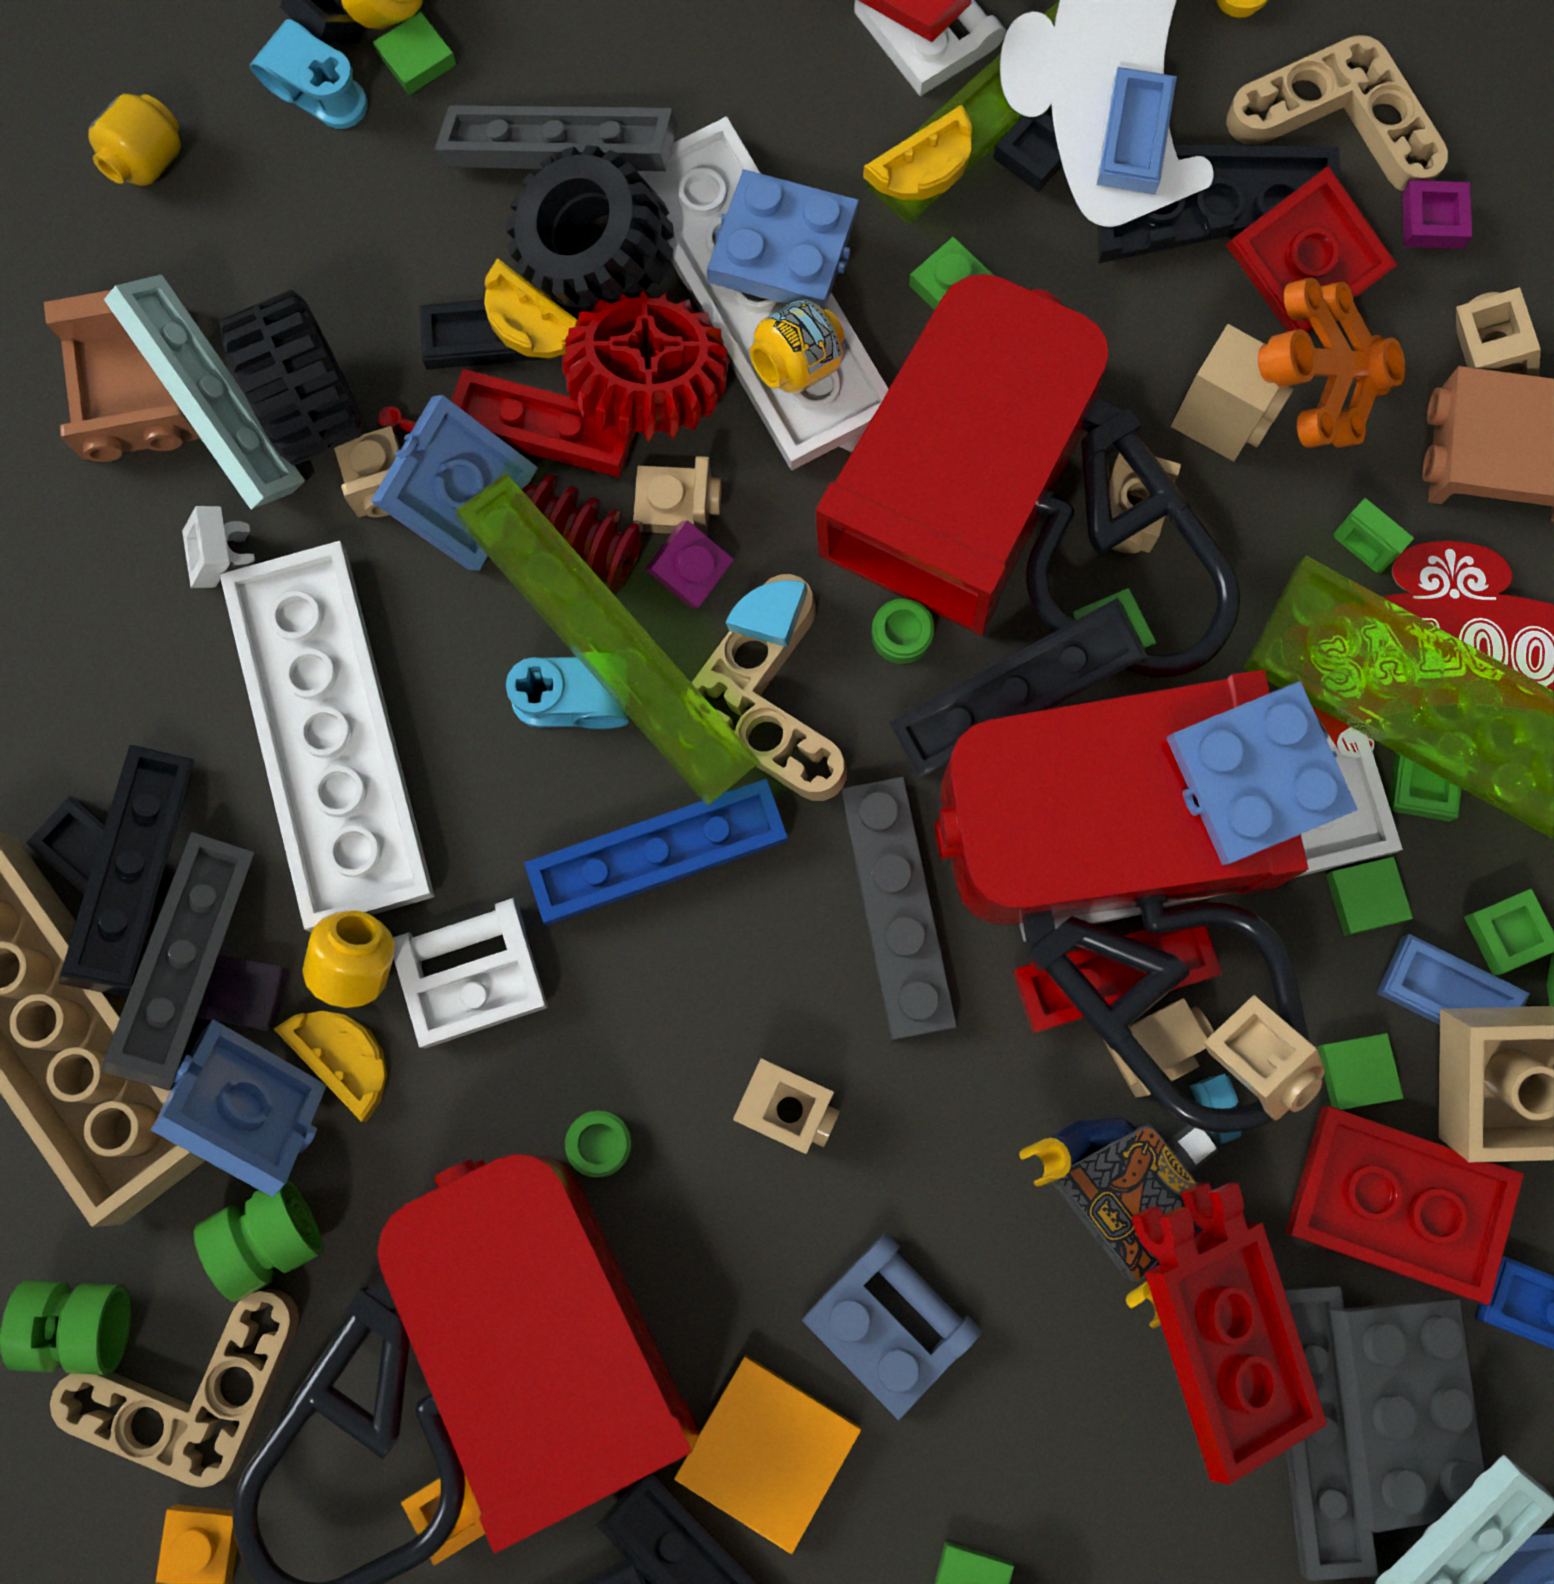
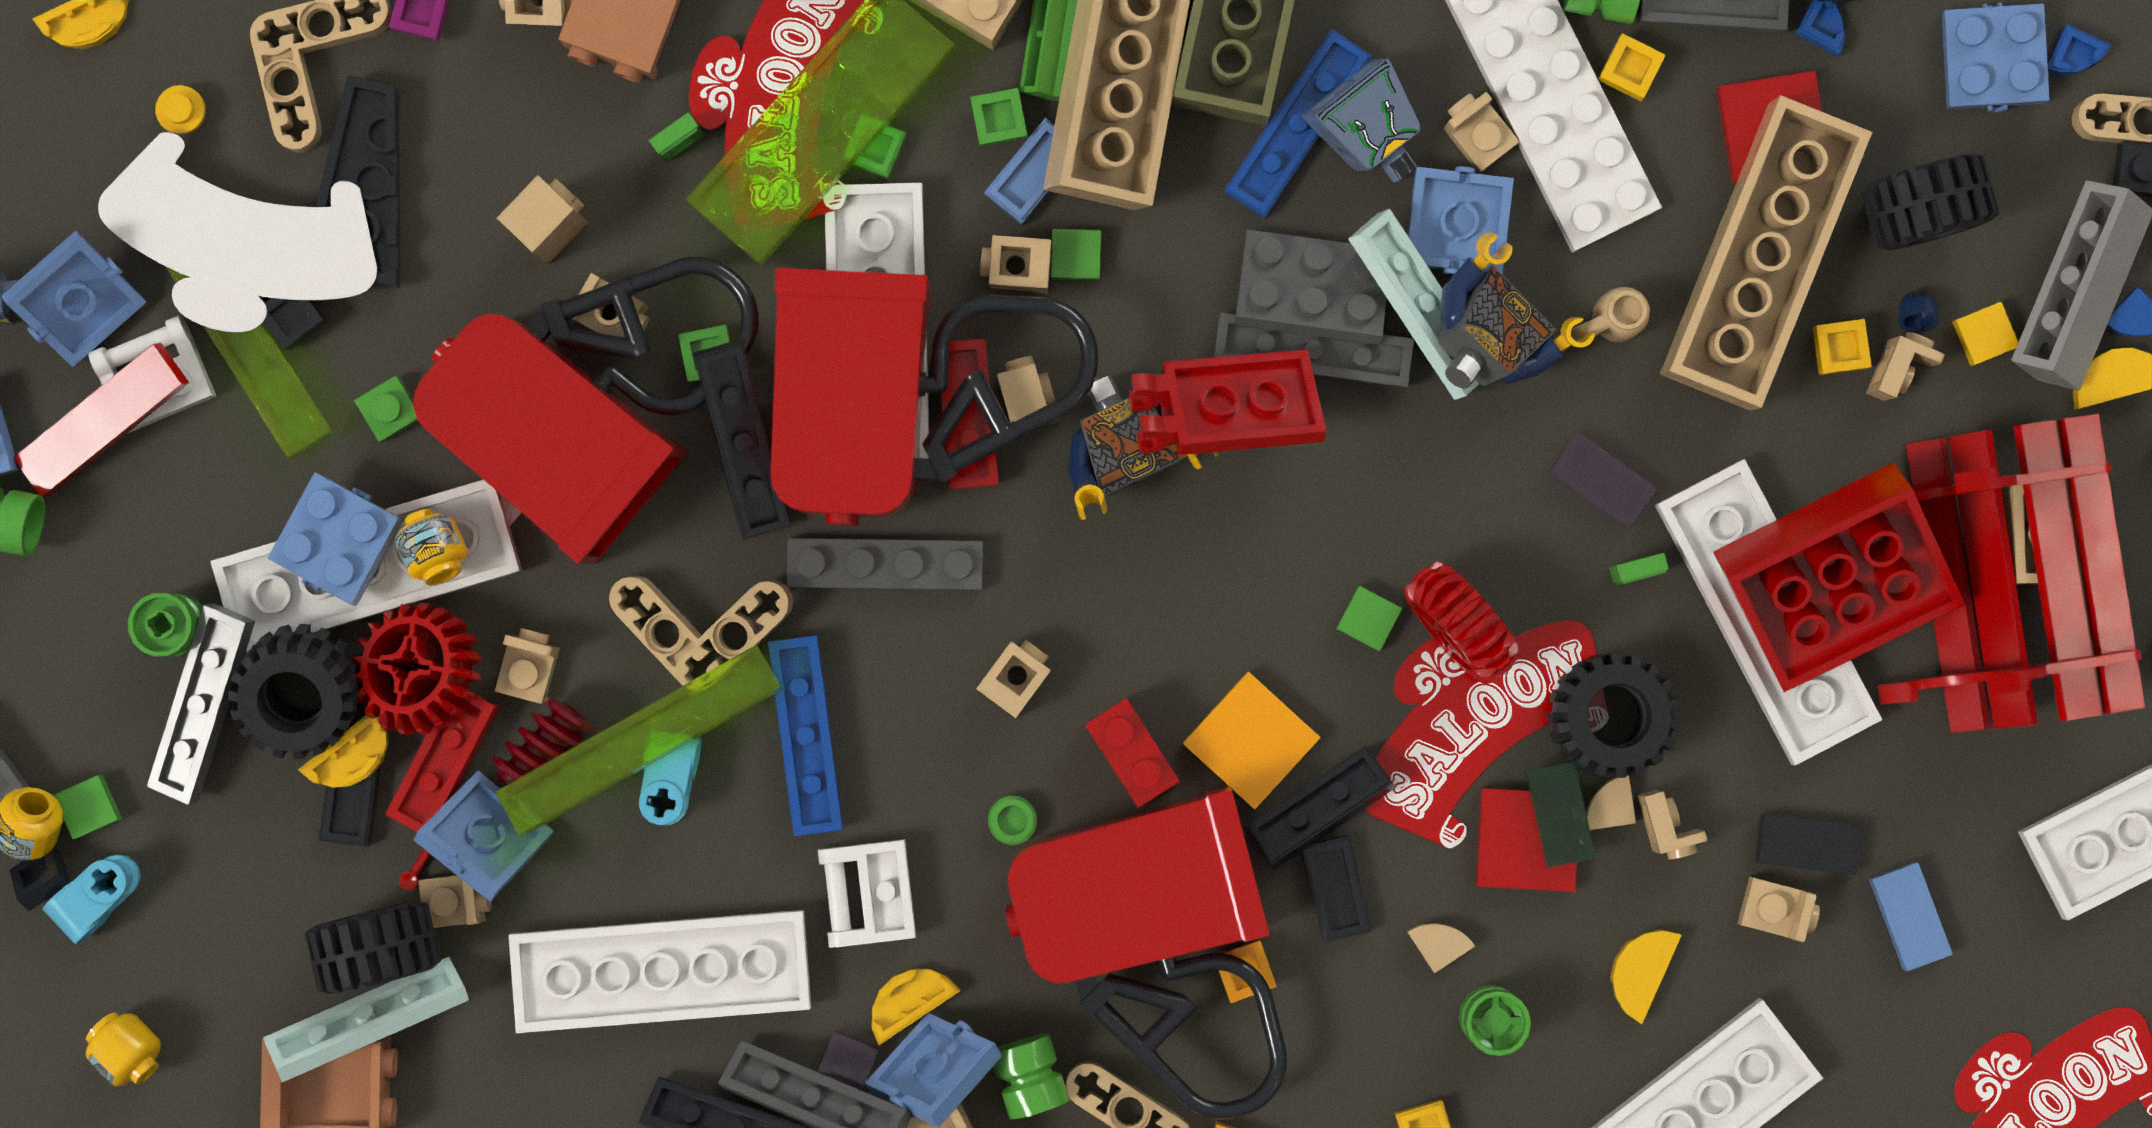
camera: 75 degrees left, 10 degrees up
(207, 546) = (490, 1039): white tile -> none
(348, 959) = (839, 978): yellow head -> none
(641, 71) = (164, 623): none -> bright green wheel
(689, 564) = (584, 666): magenta plate -> none
(717, 1291) = (1132, 752): none -> red brick
(769, 612) = (639, 612): medium azure tile -> none
(875, 1342) = (1190, 649): sand blue plate -> none
(902, 631) = (672, 512): bright green tile -> none
(925, 161) = (289, 408): yellow tile -> none
(1136, 130) = (300, 235): medium blue tile -> none
(1217, 1093) = (1069, 364): medium azure tile -> none
(1261, 773) = (852, 293): medium blue plate -> none
(1268, 1058) = (1051, 334): tan bracket -> none
(1294, 360) = (538, 96): orange plant -> none
(1307, 236) = (434, 121): red tile -> none
(1353, 1002) = (1034, 253): none -> tan brick
(1369, 896) = (950, 213): bright green tile -> none
(1404, 1204) = (1174, 250): red plate -> none

